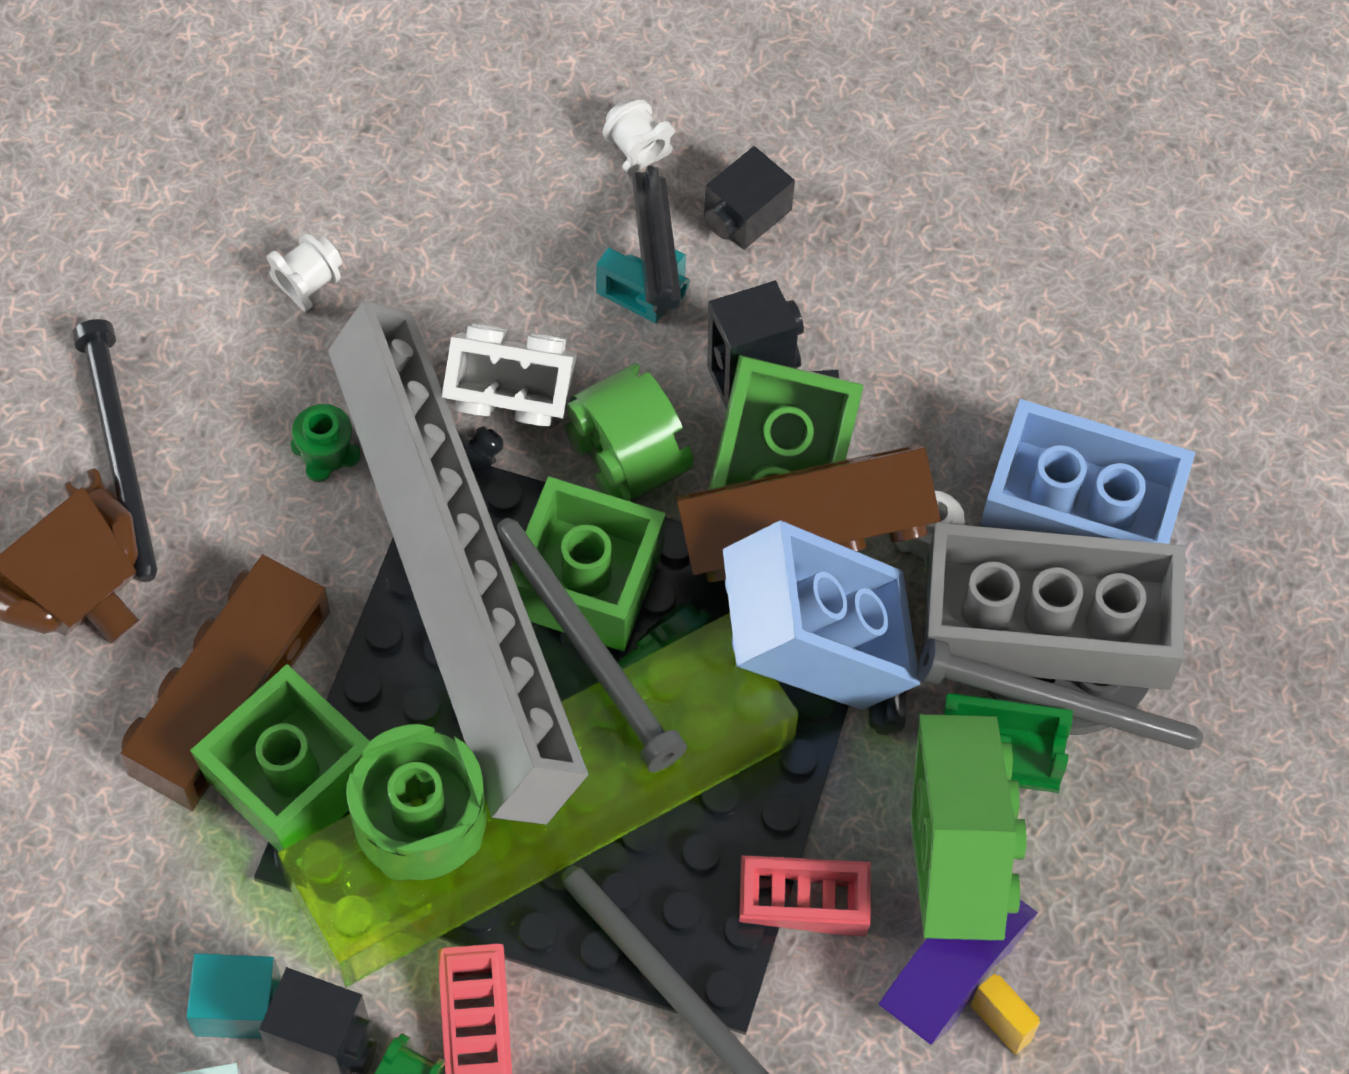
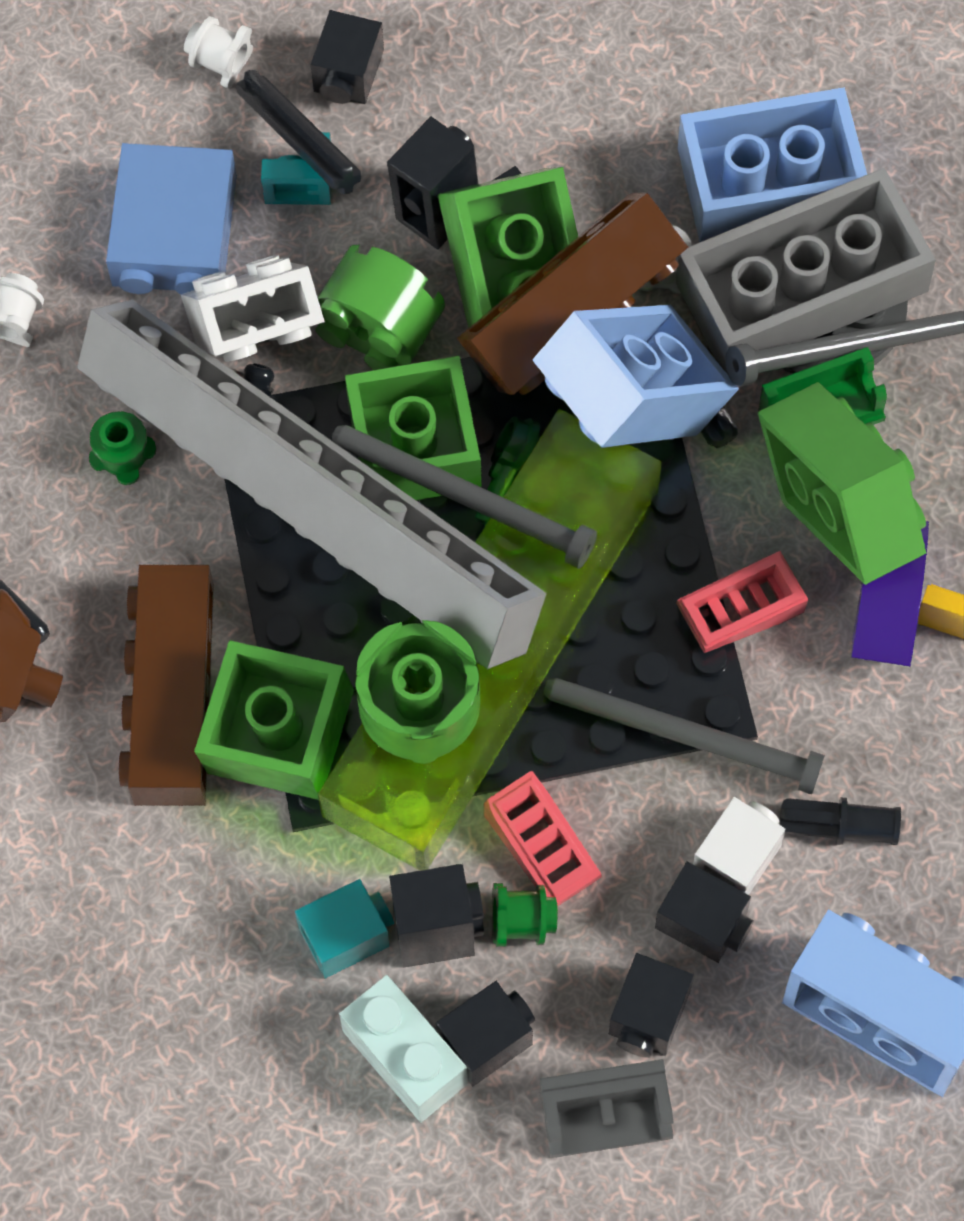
camera: 25 degrees left, 5 degrees up
(498, 259) = (170, 216): none -> medium blue brick

